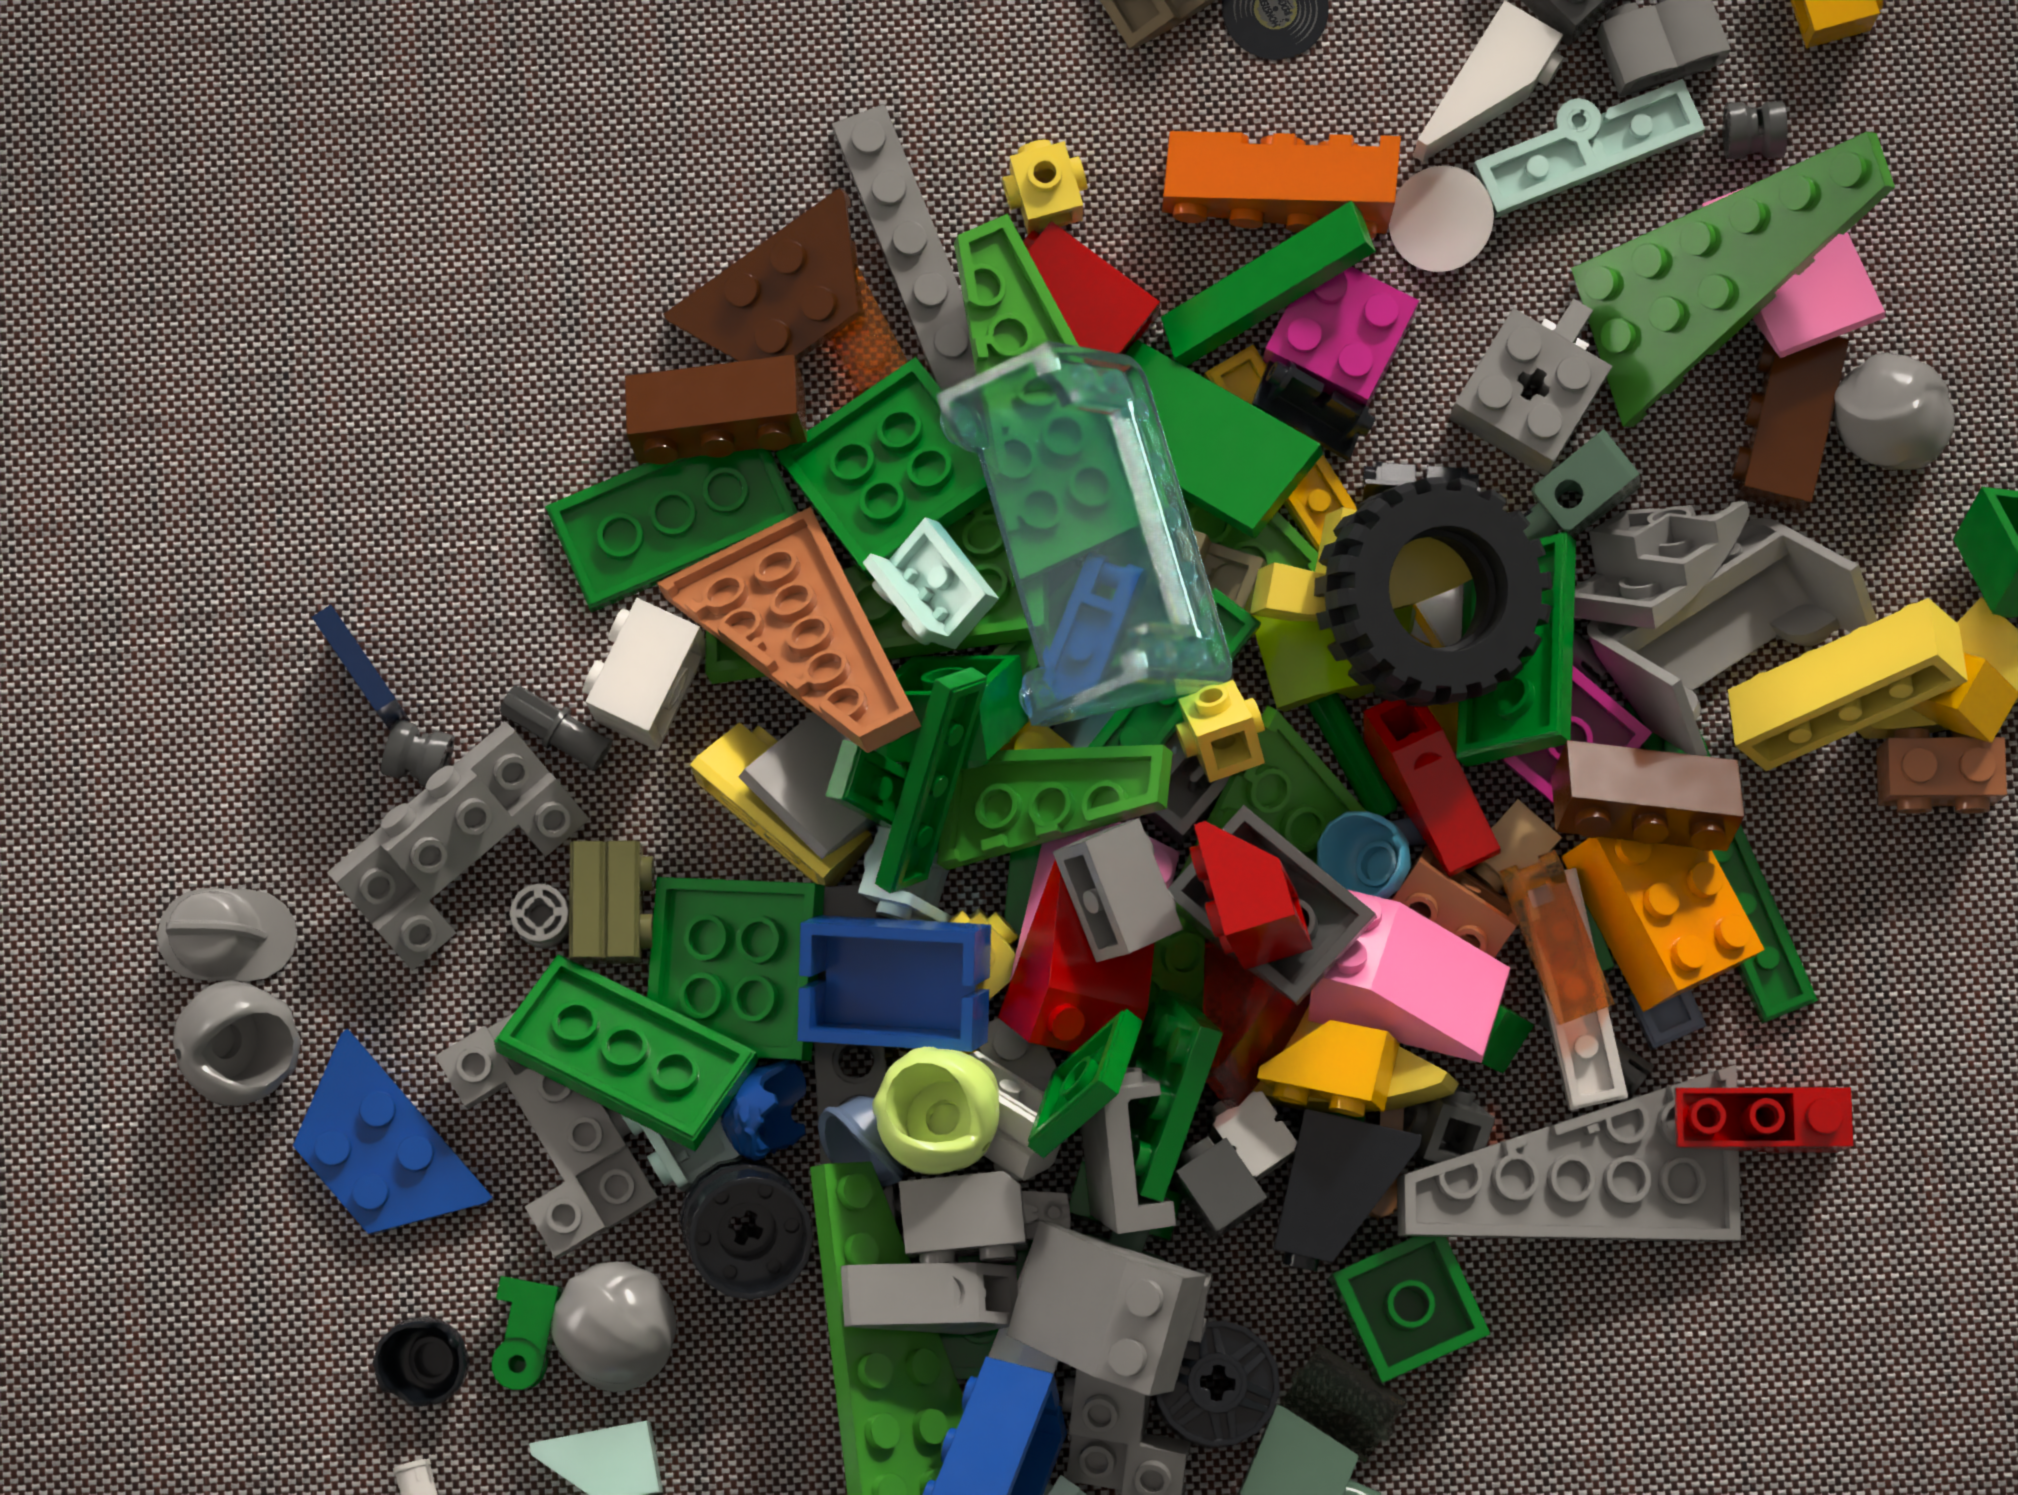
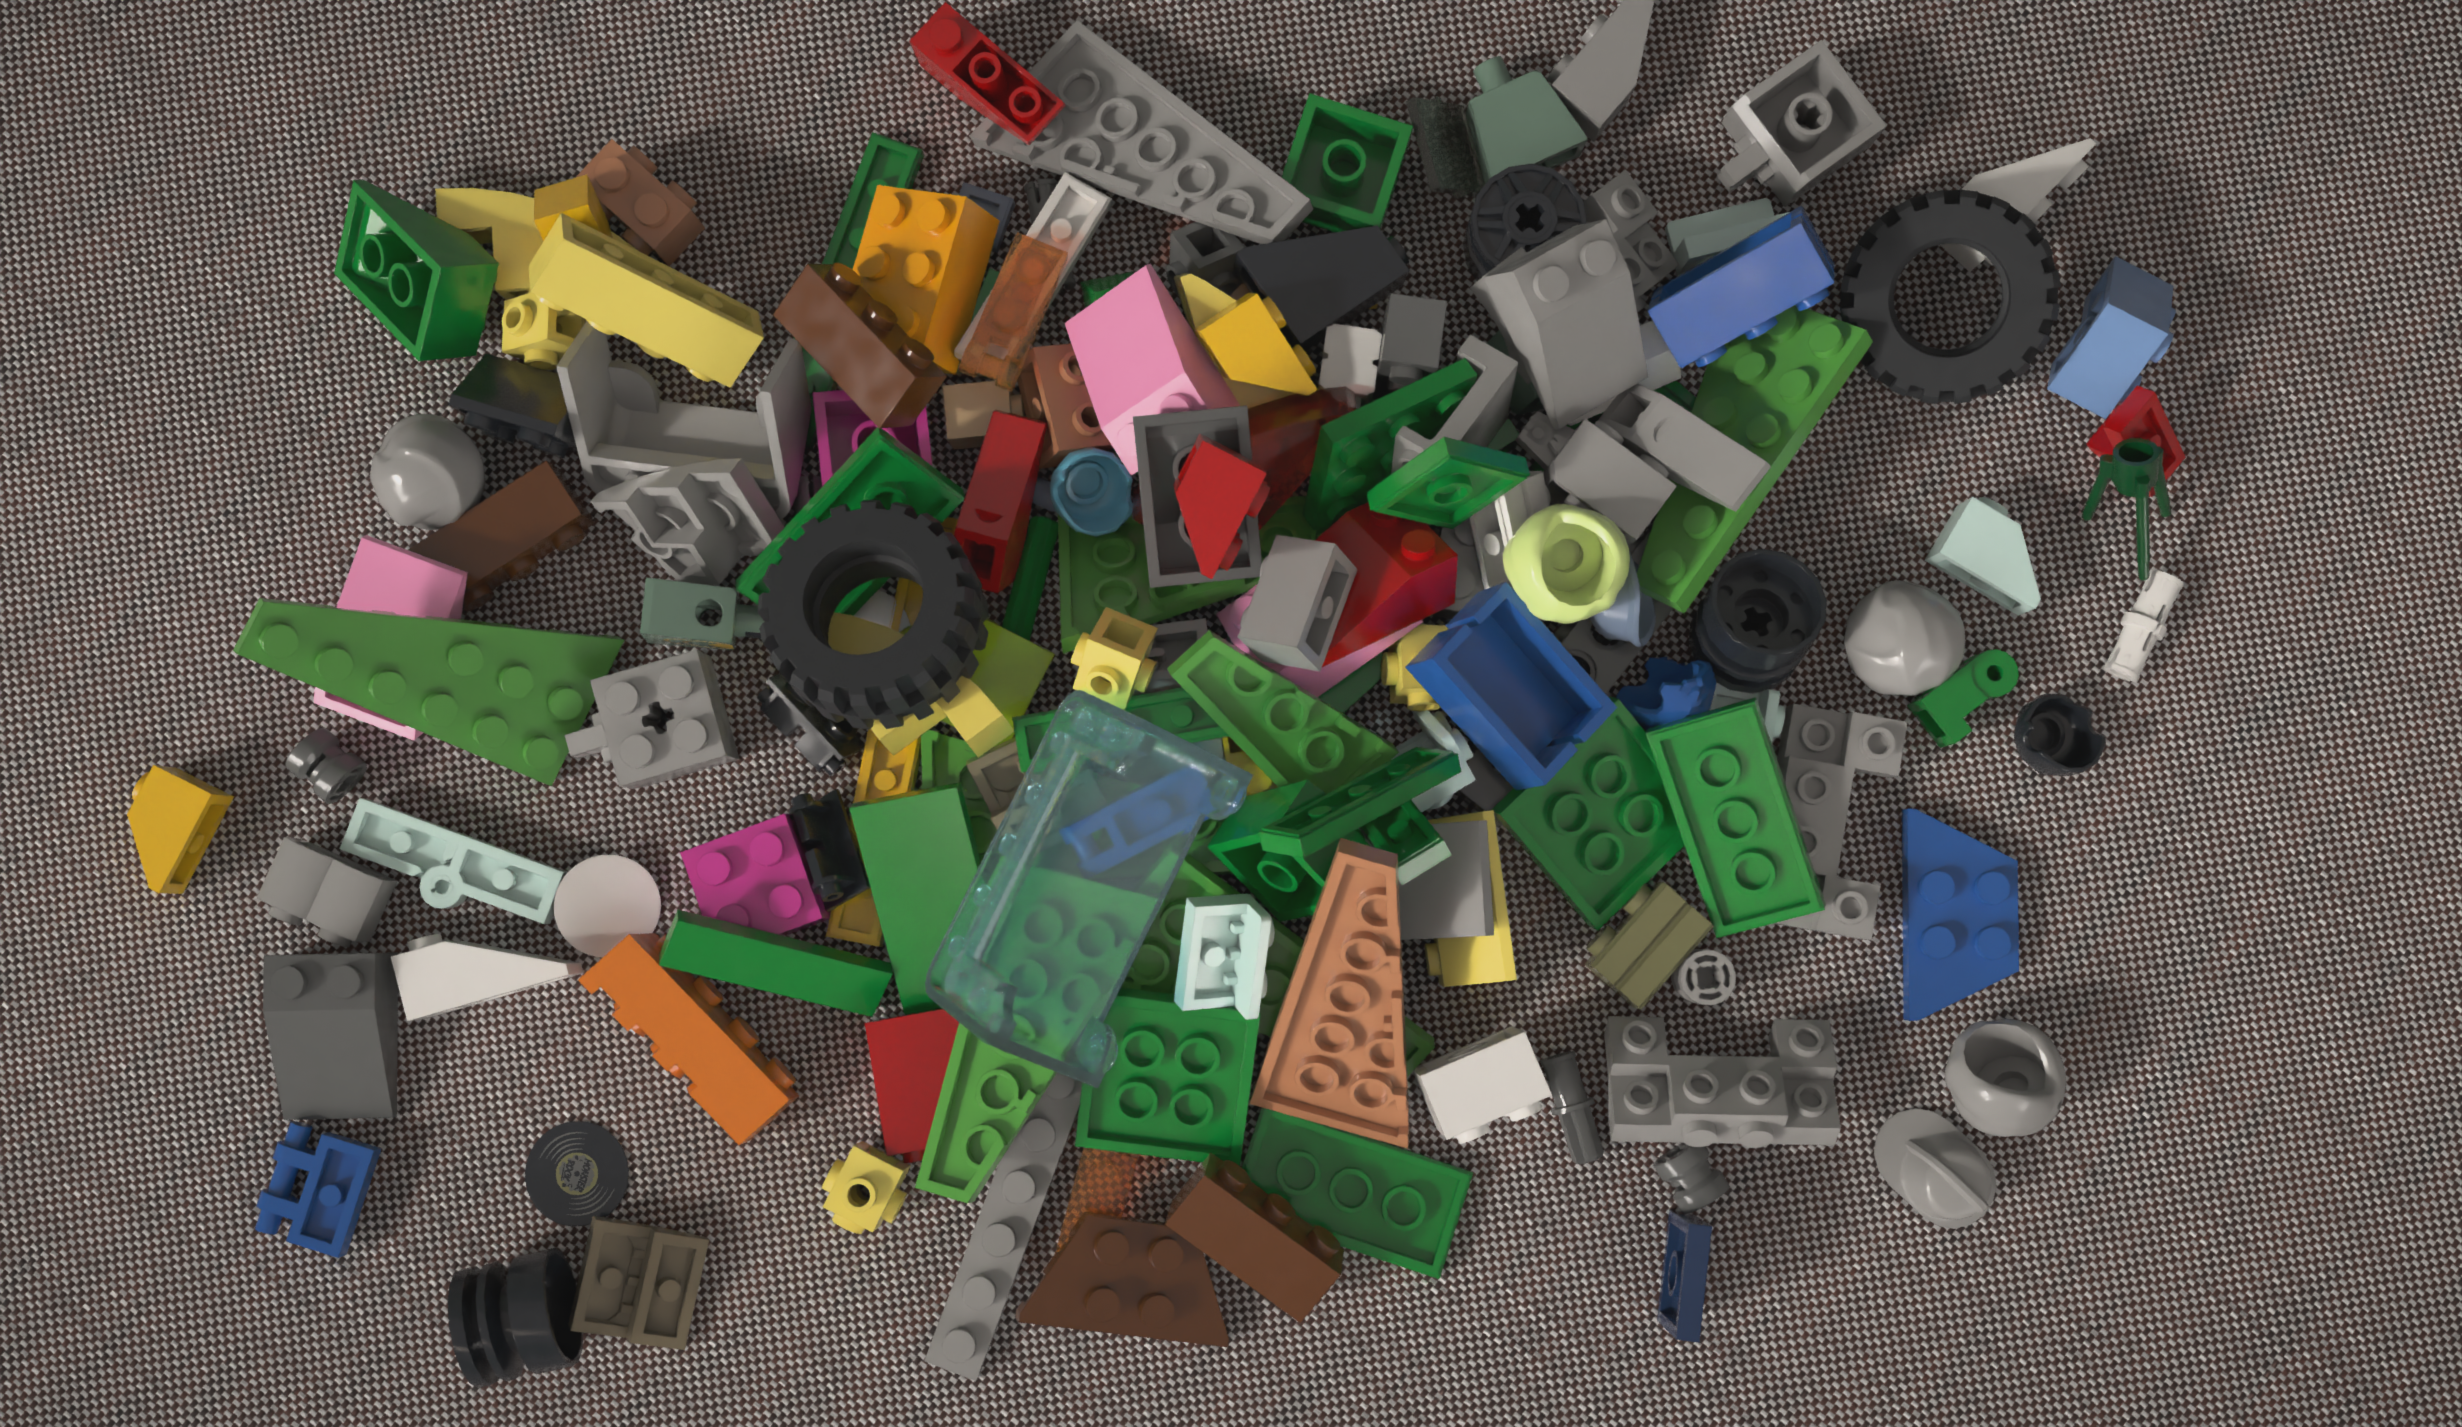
camera: 135 degrees left, 5 degrees up
(1880, 526) = (516, 400): none -> black slope
(1914, 584) = (537, 331): none -> light yellow brick

